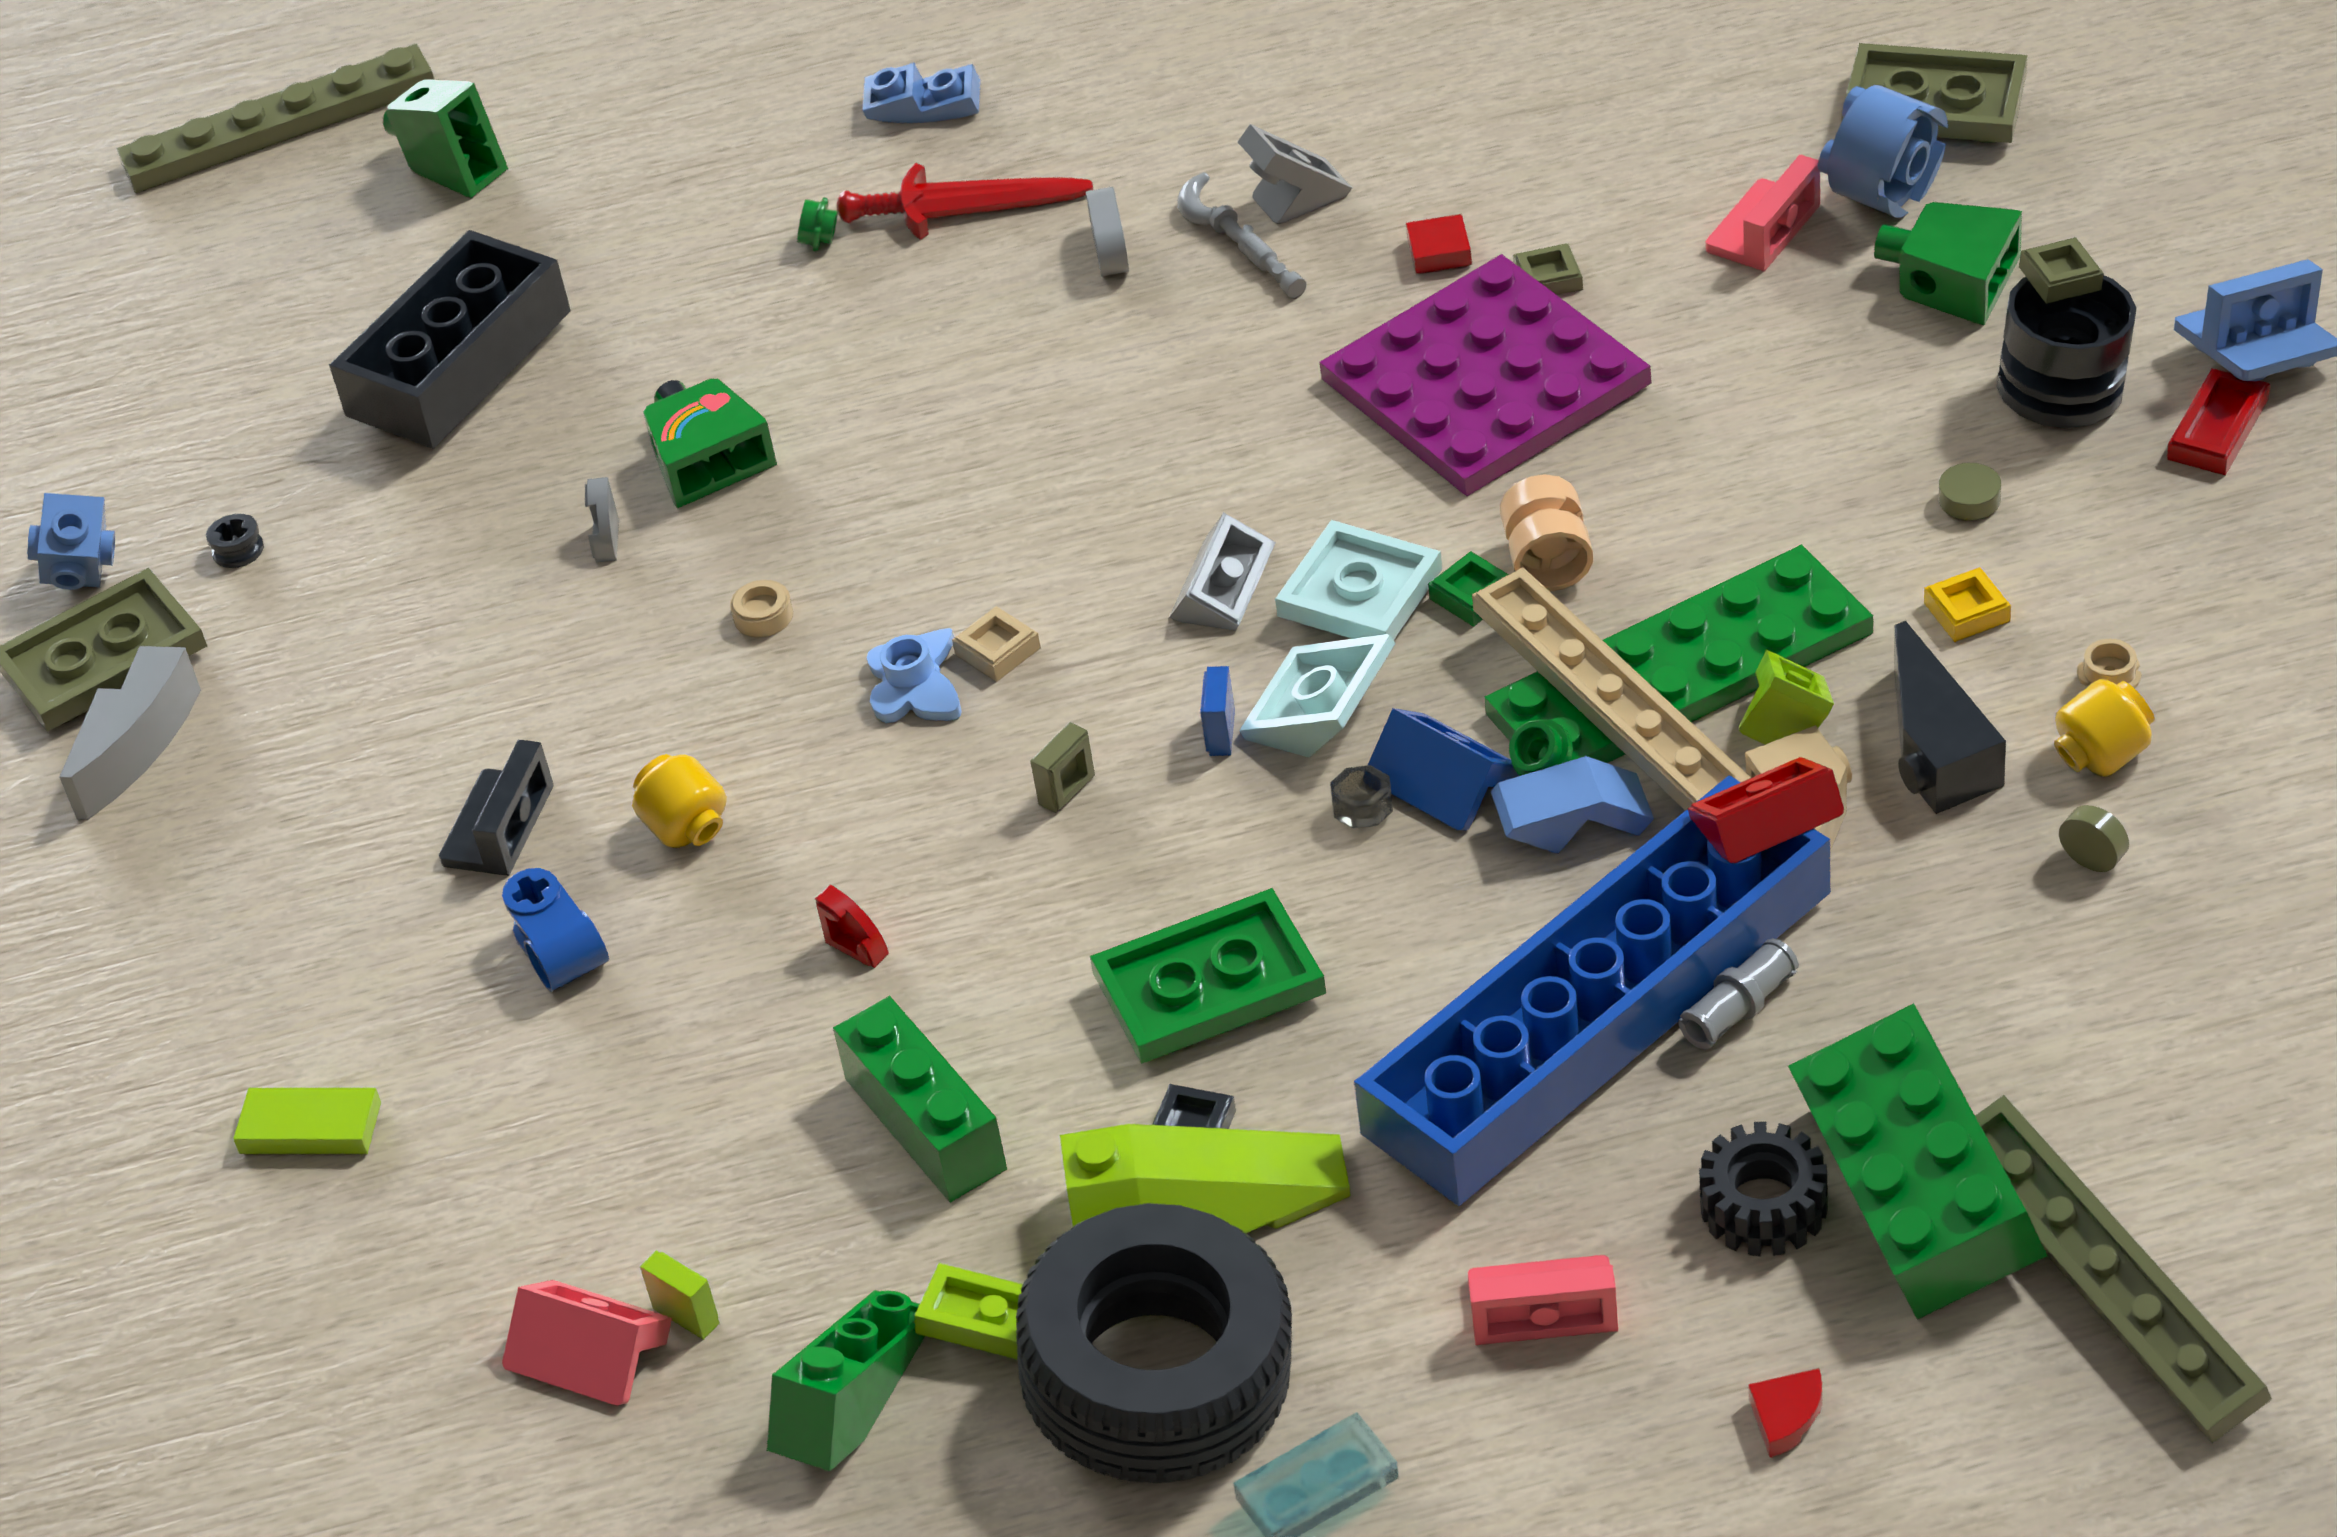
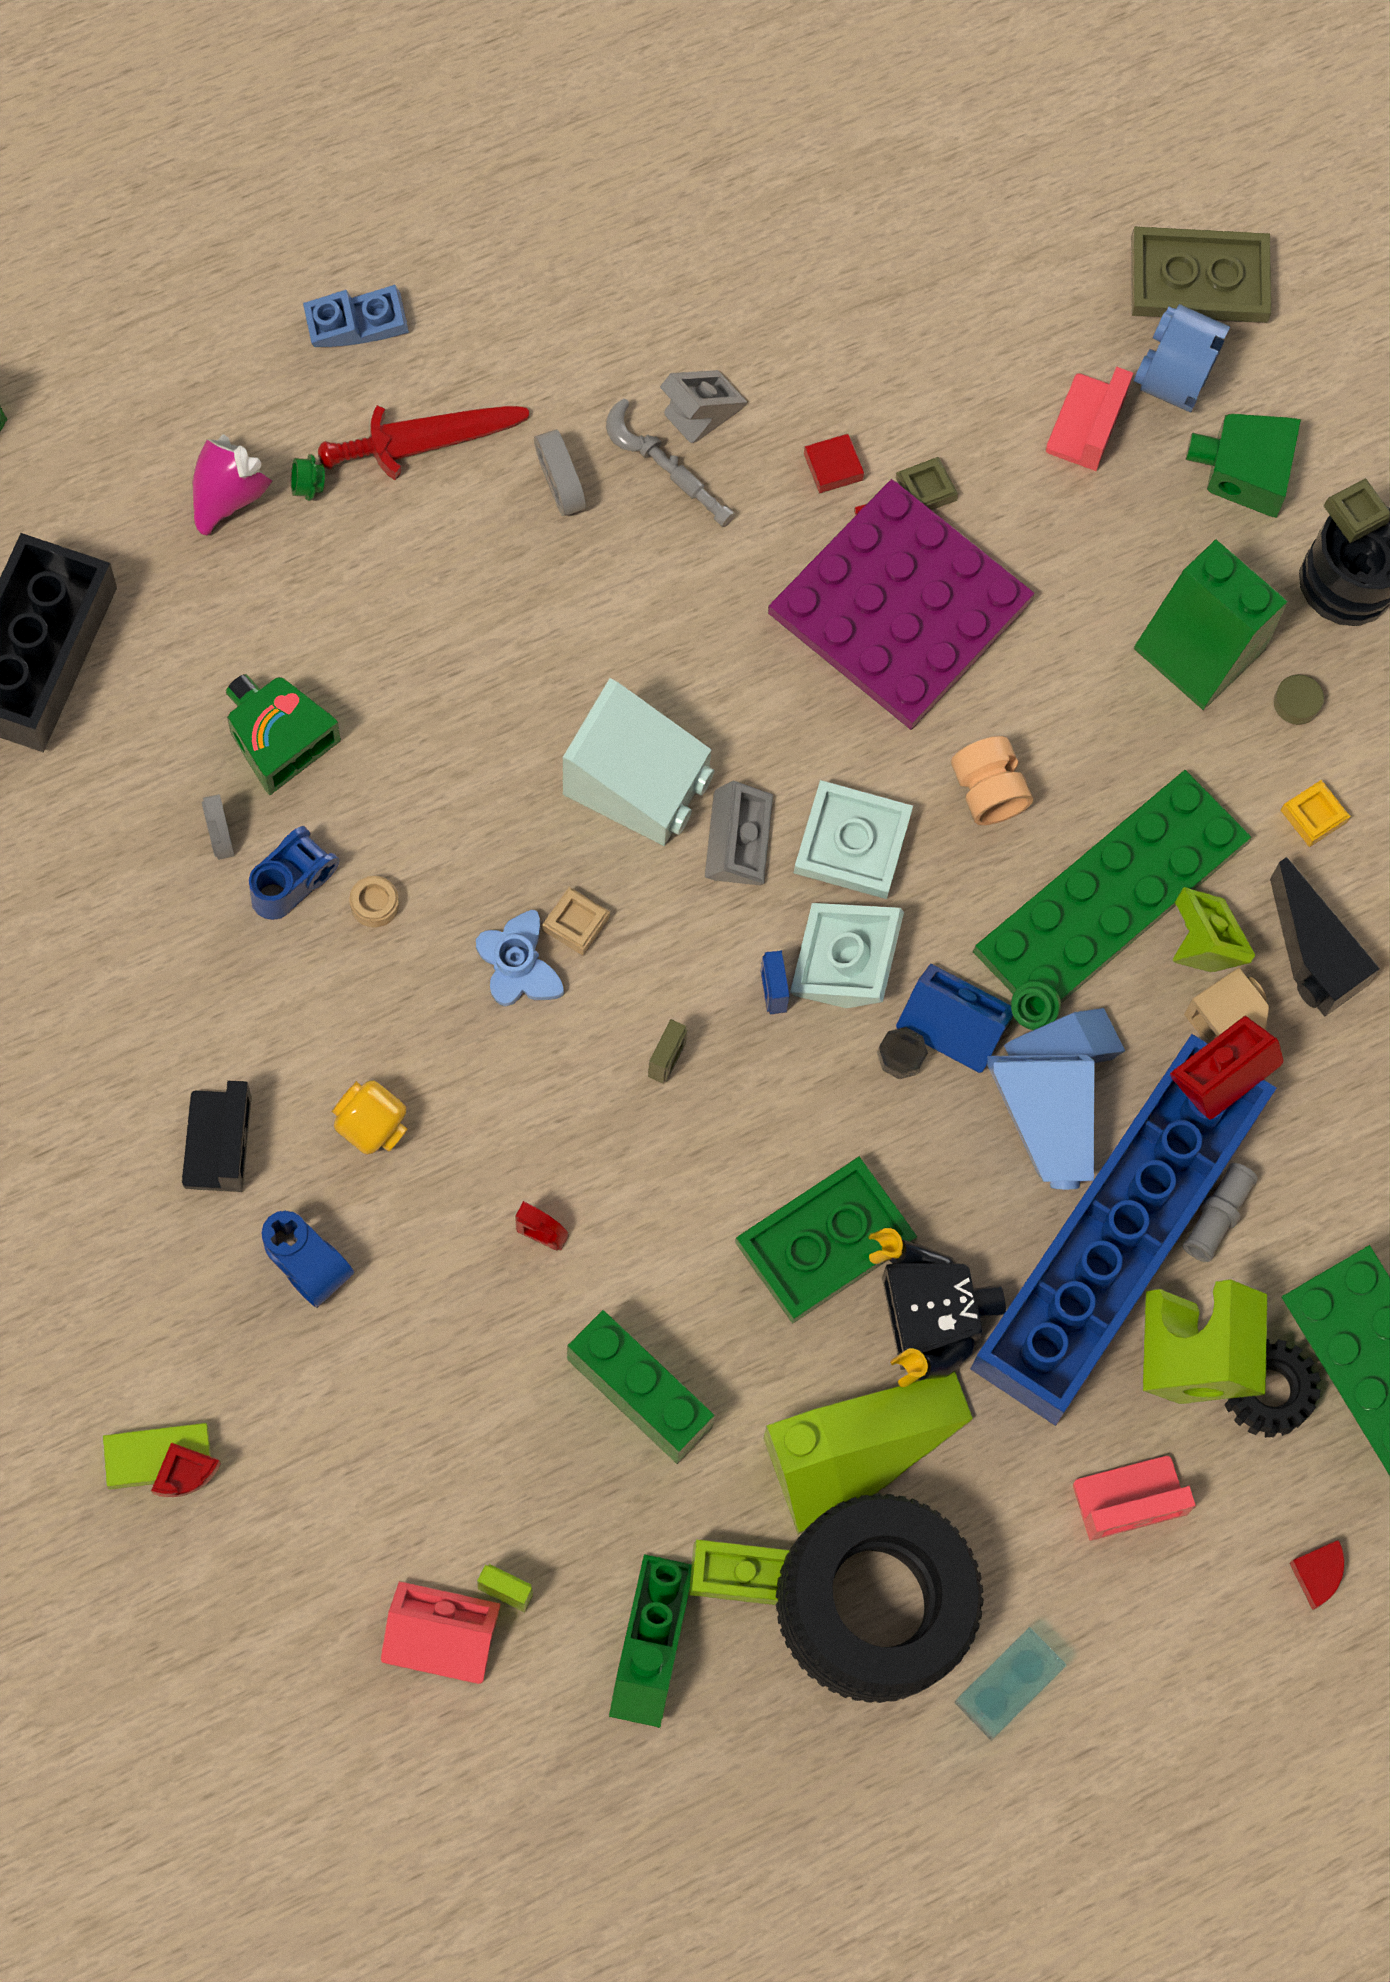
camera: 25 degrees left, 25 degrees up
(327, 1129) = (184, 1472): none -> red tile
(663, 570) = (295, 866): none -> blue piece
(720, 216) = (224, 482): none -> dark pink hat
(1102, 483) = (635, 765): none -> light aqua slope
(1195, 1108) = (842, 1372): black tile -> none
(1313, 1044) = (931, 1307): none -> torso
(1459, 582) = (938, 830): green tile -> none
(1527, 841) = (1052, 1112): none -> light blue slope
(1604, 688) = (1077, 944): tan tile -> none
(1672, 1122) = (1210, 1364): none -> lime piece
(1862, 390) = (1211, 625): none -> green slope

